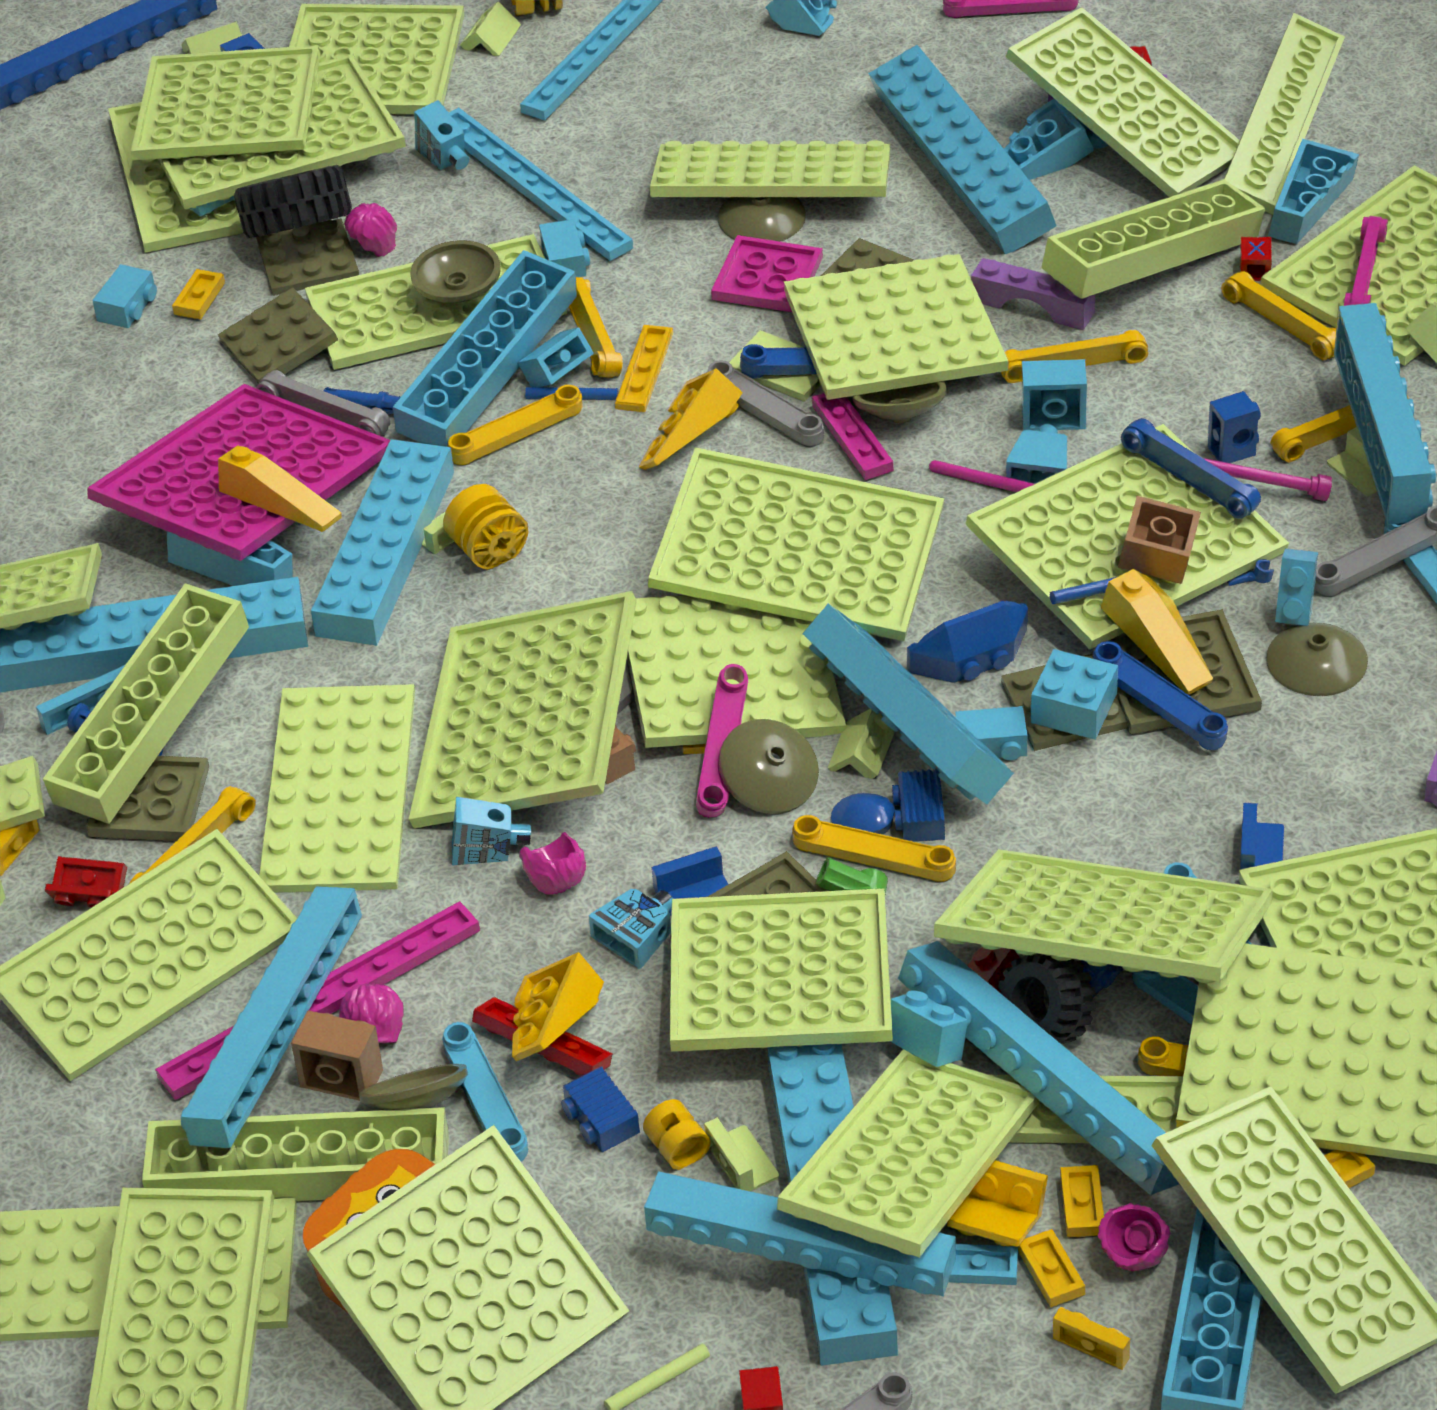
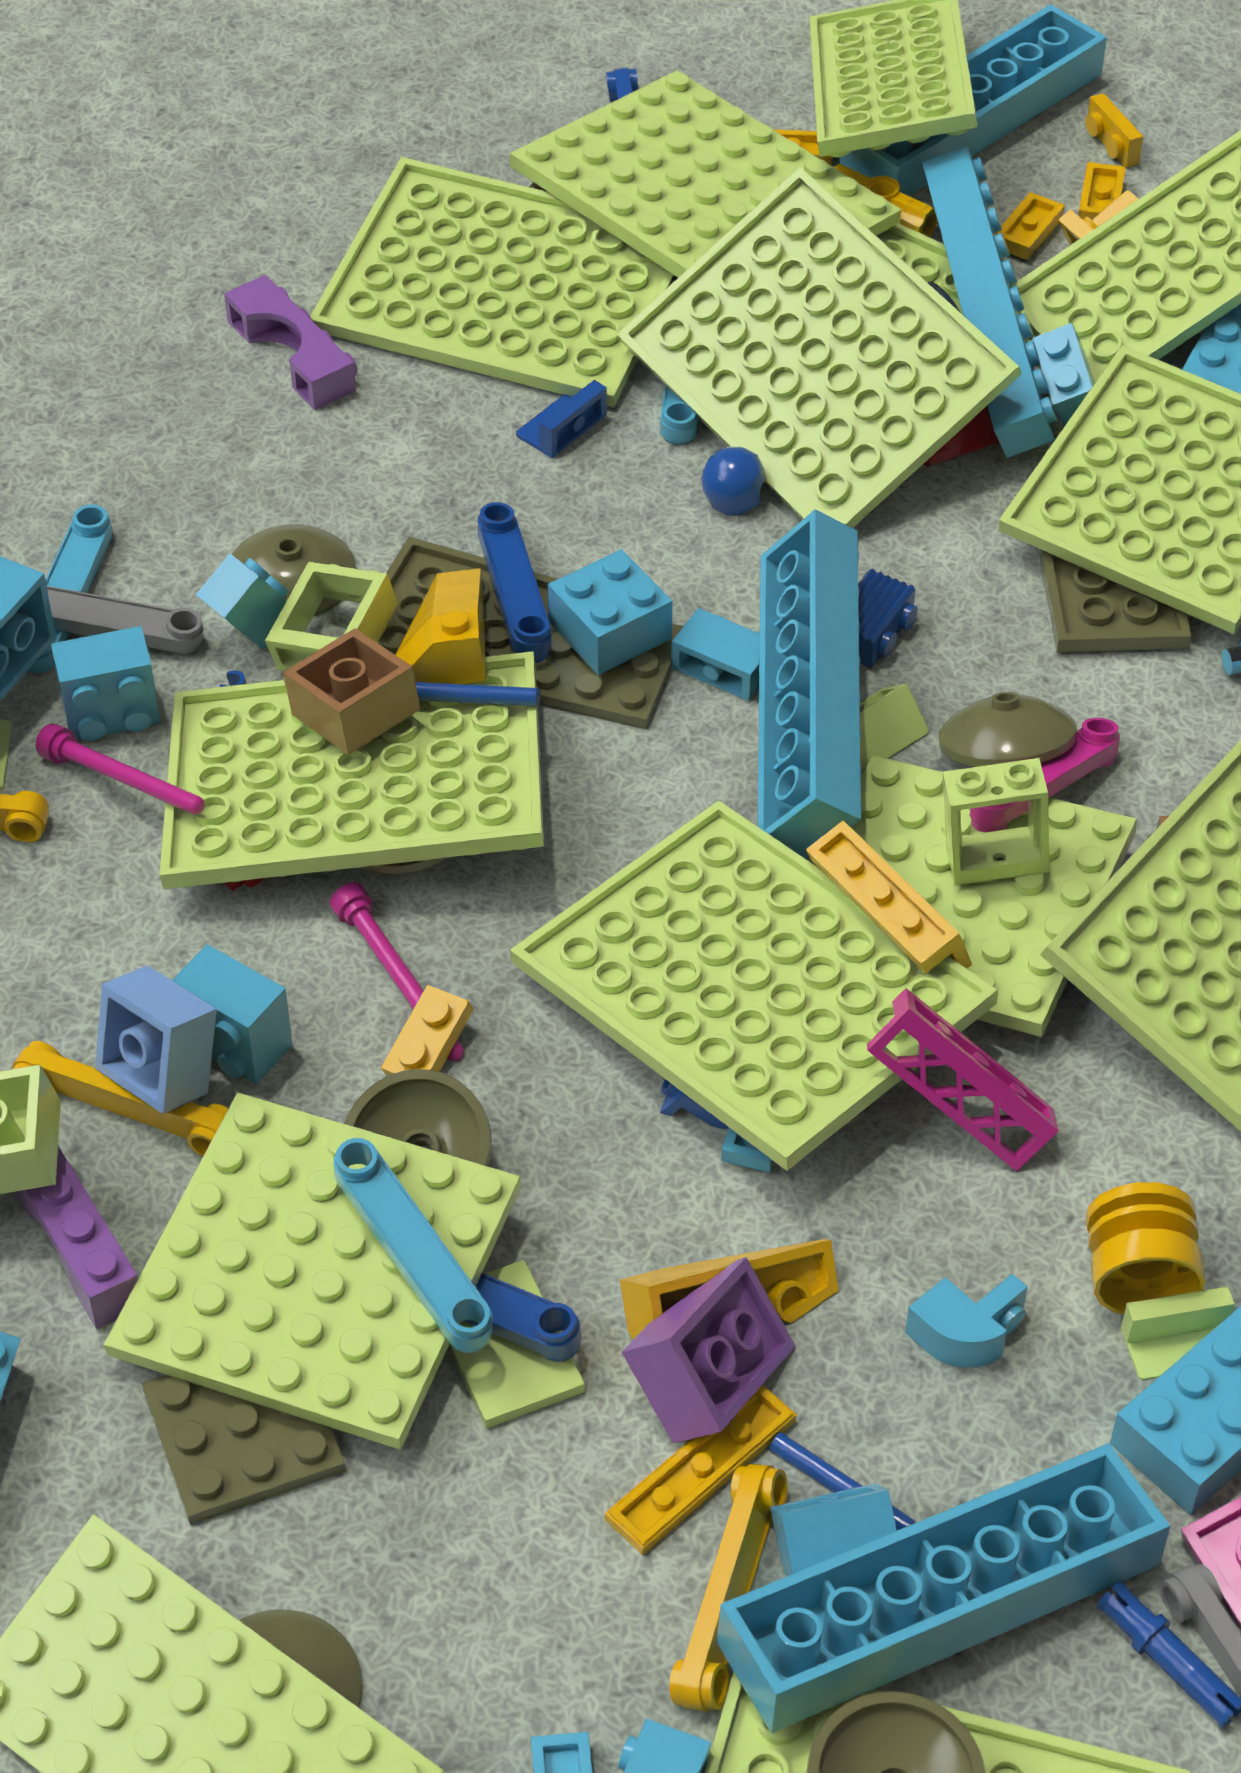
camera: 150 degrees left, 5 degrees up
(516, 425) = (957, 1455): yellow piece -> none
(561, 466) = (965, 1331): none -> medium azure brick
(633, 537) = (973, 1065): none -> dark pink fence
(669, 379) = (709, 1353): none -> medium lavender slope
(690, 875) = (1184, 675): blue panel -> none
(700, 670) = (1022, 848): none -> yellowish green window
(752, 594) = (887, 898): none -> yellow fence
(759, 267) = (382, 1534): dark pink plate -> none
(772, 408) = (589, 1275): light grey piece -> none
(840, 877) = (1014, 565): bright green piece -> none
(853, 436) = (522, 1140): dark pink plate -> none
(864, 812) = (935, 653): blue hat -> none
(874, 849) = (959, 606): yellow piece -> none
(897, 337) = (413, 1245): none -> medium azure piece
(950, 453) = (429, 1032): none -> yellow plate
(970, 643) = (648, 754): blue wedge -> none
(1037, 455) = (329, 962): medium azure torso -> none
(1068, 337) = (155, 1039): none -> light blue brick
(1096, 845) = (733, 480): none -> blue hair
(1134, 1237) = (1019, 162): dark pink hair -> none
(1233, 427) = (78, 838): blue brick -> none
(1234, 589) = (370, 588): none -> yellowish green window
(1235, 496) = (221, 837): piece -> none
(1321, 506) = (106, 683): none -> medium azure brick

